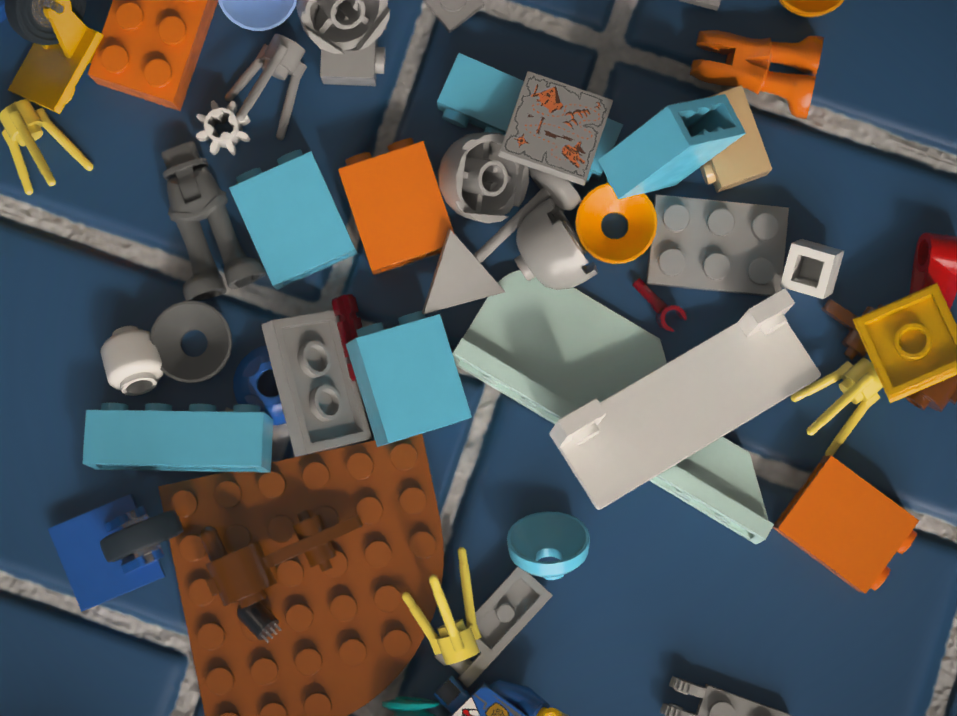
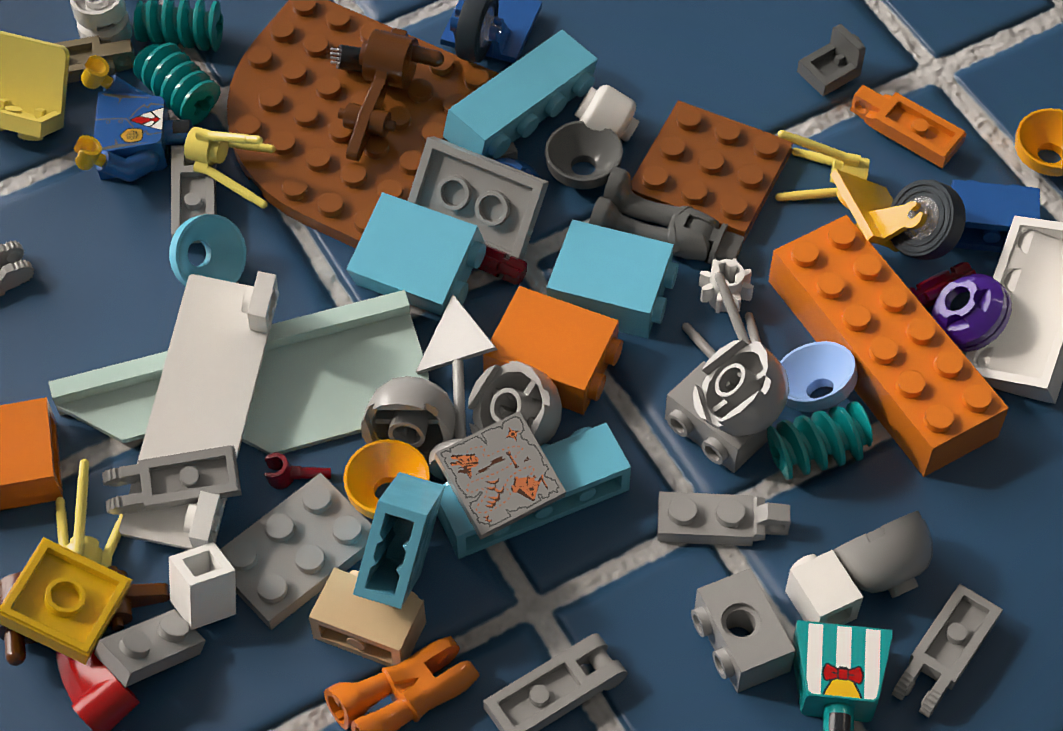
camera: 130 degrees right, 30 degrees down
(109, 240) = (712, 166): none -> dark orange plate
(758, 362) = (175, 479): none -> light grey hinge
(884, 261) = (149, 647): none -> light grey plate

